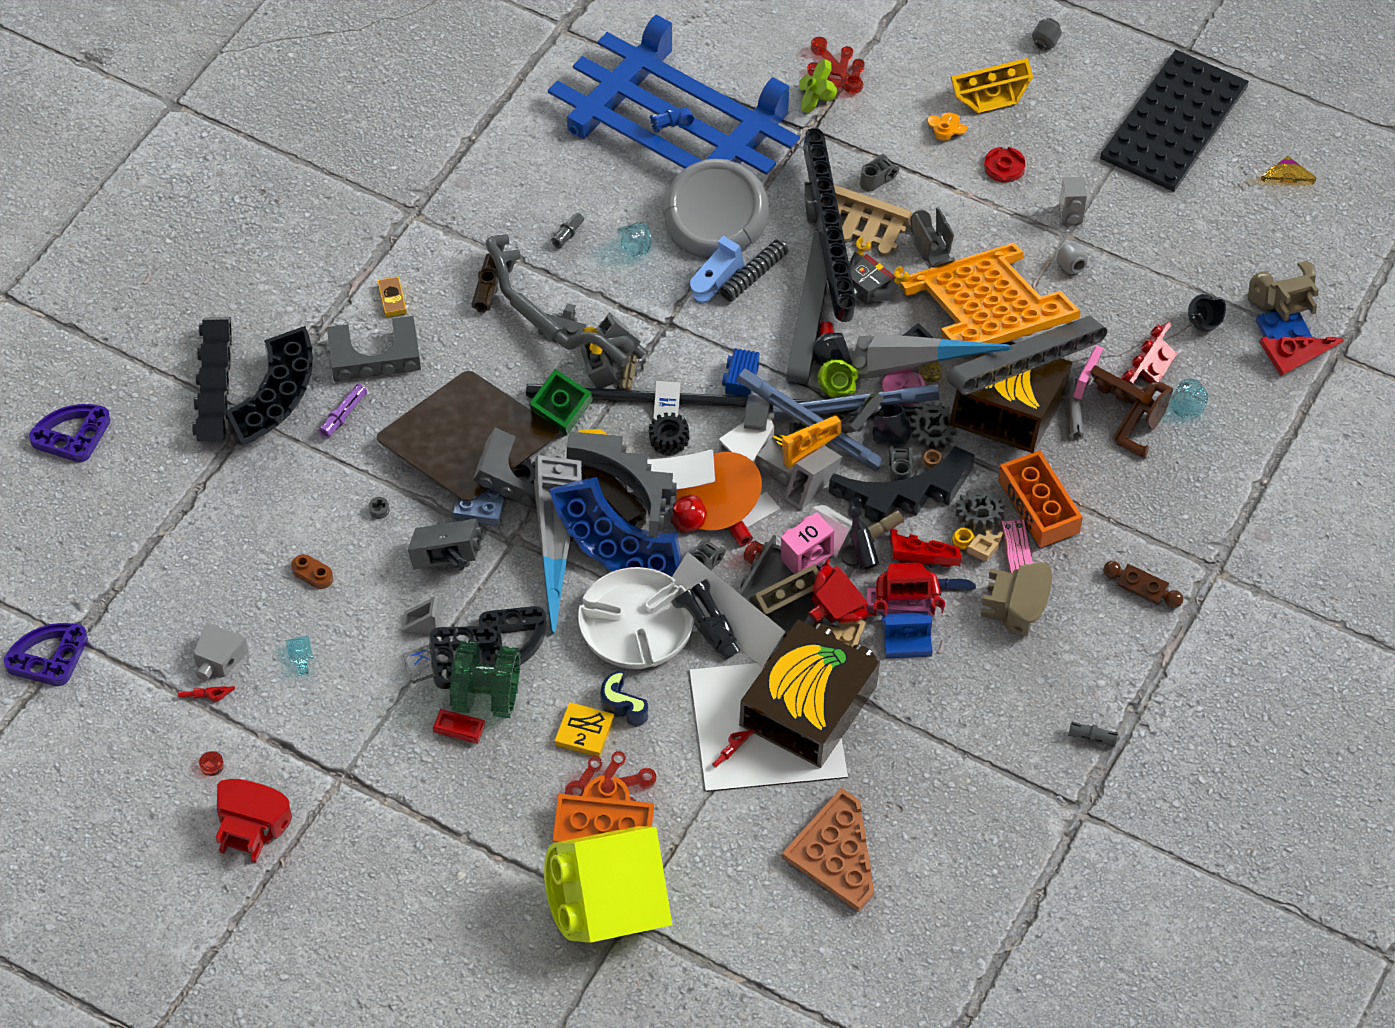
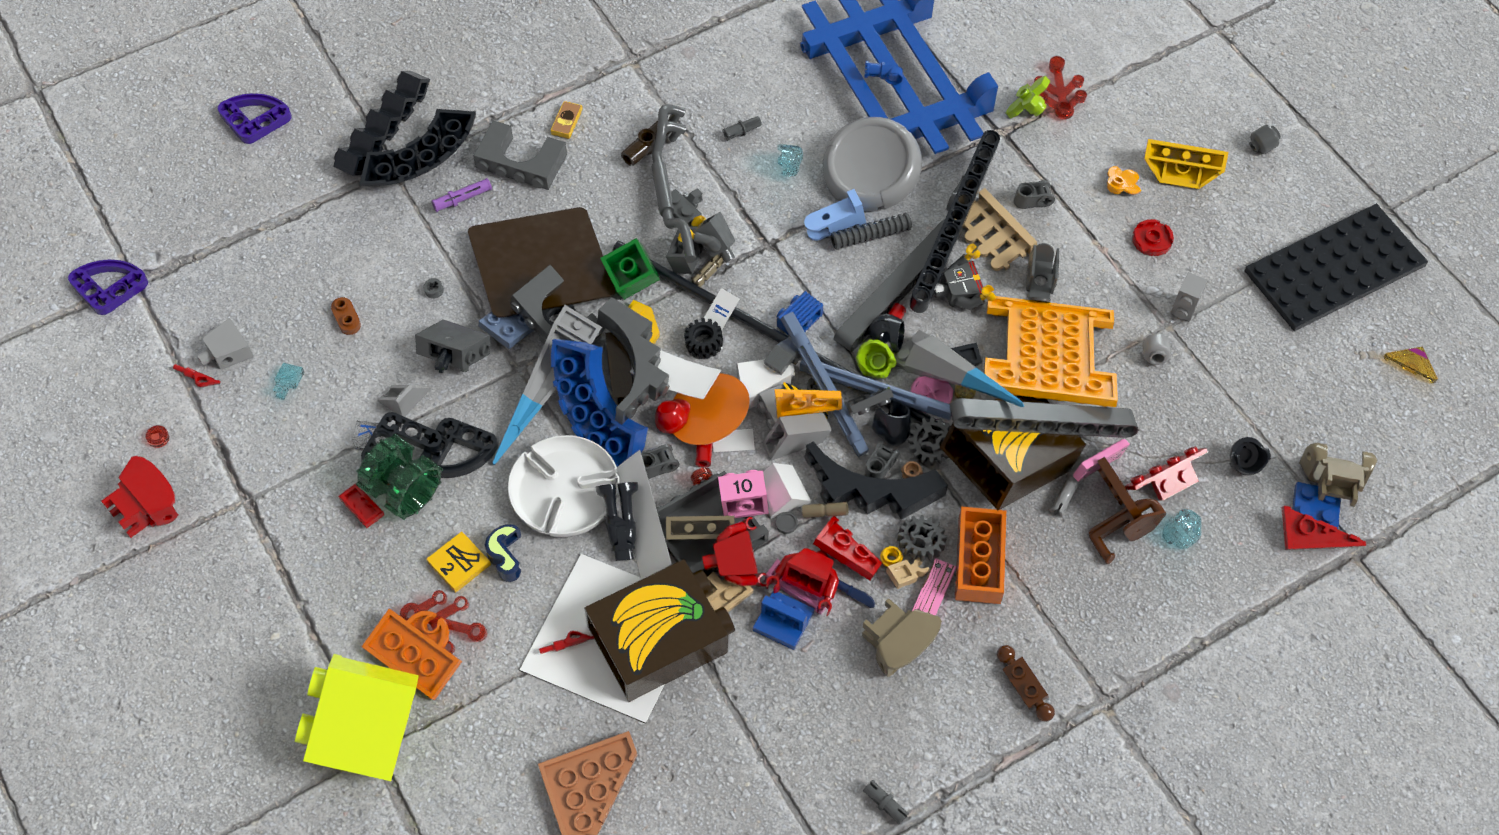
camera: 30 degrees right, 5 degrees up
(862, 540) = (797, 513): black wheel -> none

